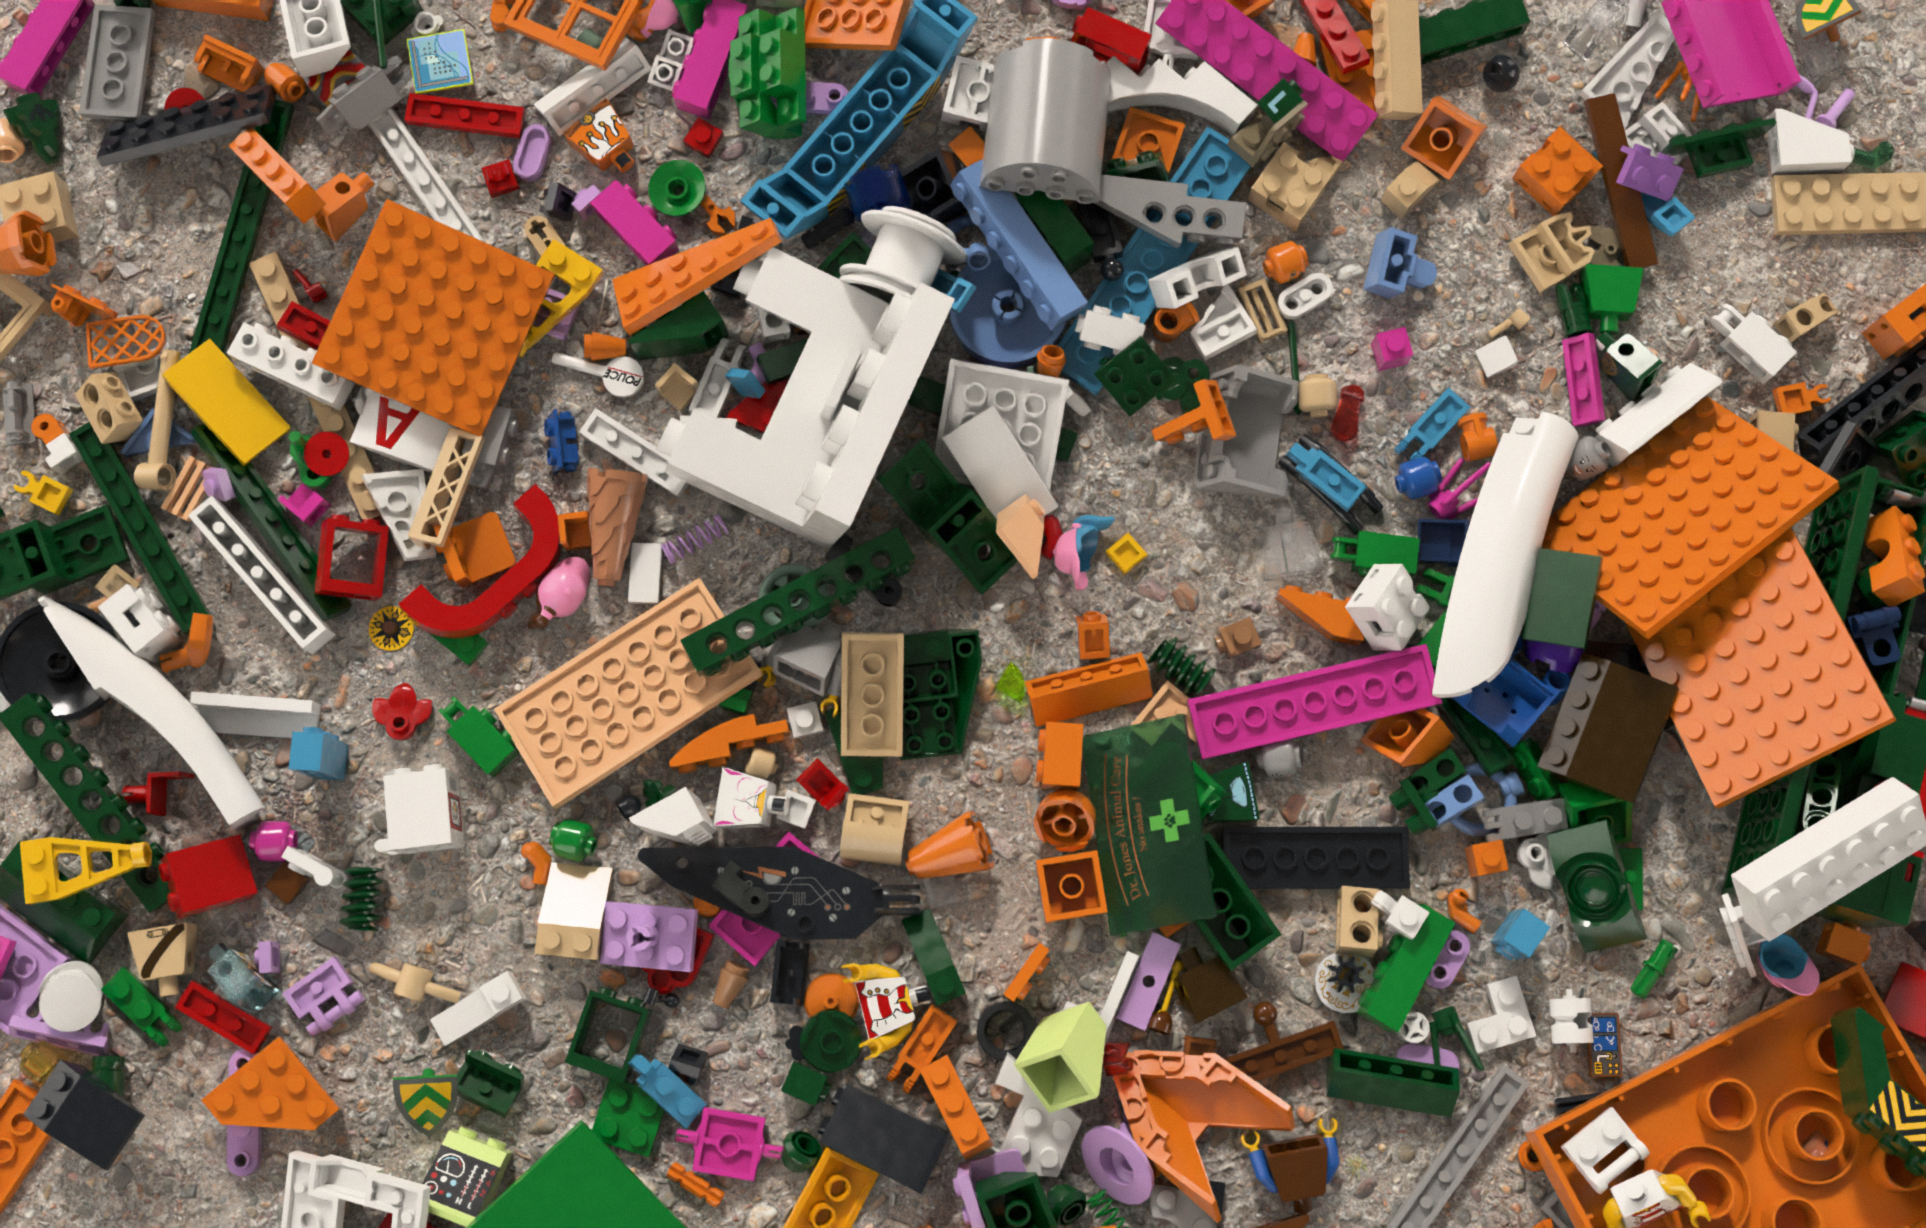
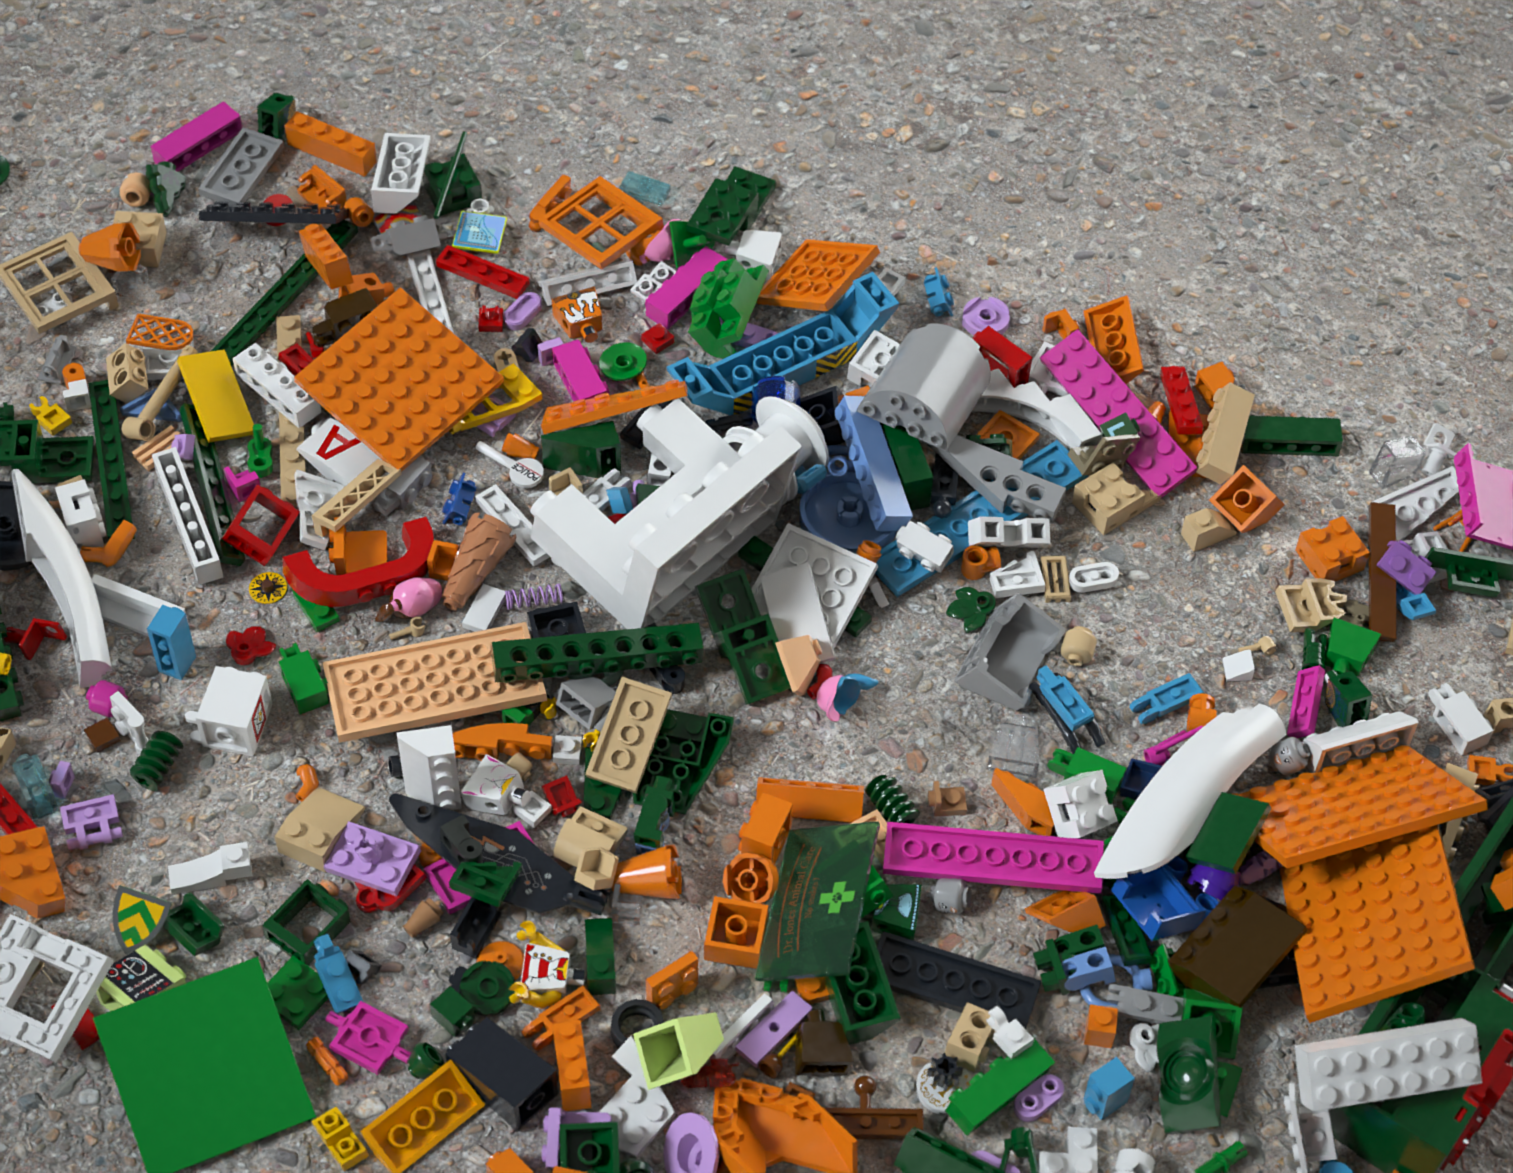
camera: 15 degrees right, 25 degrees down
(77, 308) = (137, 300): orange hinge -> none
(207, 876) = (44, 702): red brick -> none
(326, 453) = (275, 451): red piece -> none
(335, 249) = (342, 315): none -> dark brown hinge
(414, 982) = (168, 834): tan piece -> none
(571, 630) = (413, 629): none -> tan hand
(573, 840) = (342, 773): green head -> none
(651, 994) = (369, 918): black piece -> none
(738, 575) = (556, 620): none -> black plate
(785, 930) = (485, 880): none -> dark green wing
(898, 871) = (596, 868): none -> tan panel
(934, 781) = (654, 816): none -> dark green hips
(1012, 683) = (747, 776): clear neon green tile -> none
(1093, 635) = (827, 760): orange bracket -> none
(1126, 553) = (878, 713): yellow tile -> none
(1134, 376) = (932, 583): dark green hinge -> none
(1211, 415) = (979, 625): orange bracket -> none
(1285, 262) = (1086, 548): orange head -> none
(1293, 357) = (1072, 609): dark green axle -> none
(1345, 422) = (1097, 673): clear red piece -> none
(1392, 349) = (1152, 632): dark pink brick -> none
(1396, 265) = (1176, 575): medium blue brick -> none
(1417, 1029) = (992, 1132): white wheel -> none
(1418, 478) = (1141, 729): blue head -> none
(1458, 910) = (1063, 1063): orange arm -> none
(1493, 70) = (1308, 472): black piece -> none
(1874, 626) = (1485, 922): dark blue piece -> none

